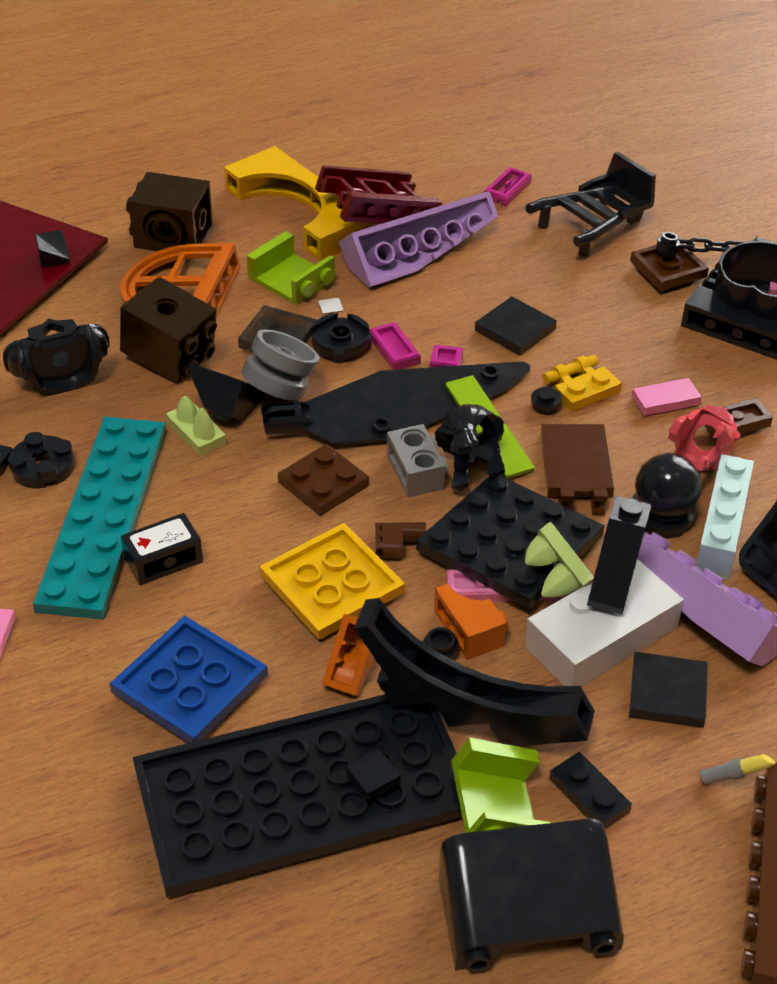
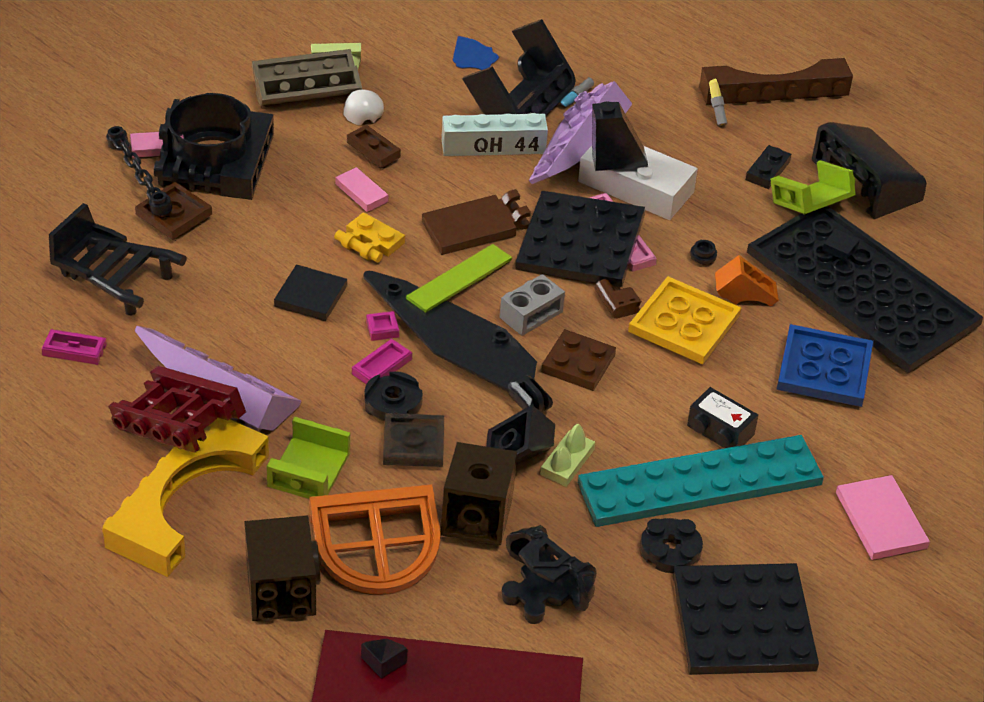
camera: 115 degrees left, 0 degrees up
(280, 365) = (482, 400): light grey wheel -> none
(330, 305) = (340, 423): white sticker -> none
(459, 438) = (498, 264): black piece -> none
(474, 622) = (678, 236): orange arch -> none
(515, 710) = (752, 200): black arch -> none
(546, 400) = (406, 253): black plate -> none
(569, 572) = (613, 190): yellowish green tile -> none
(668, 689) = (669, 141): black tile -> none
(672, 489) = (497, 160): black tile -> none
(684, 429) = (423, 143): coral piece -> none

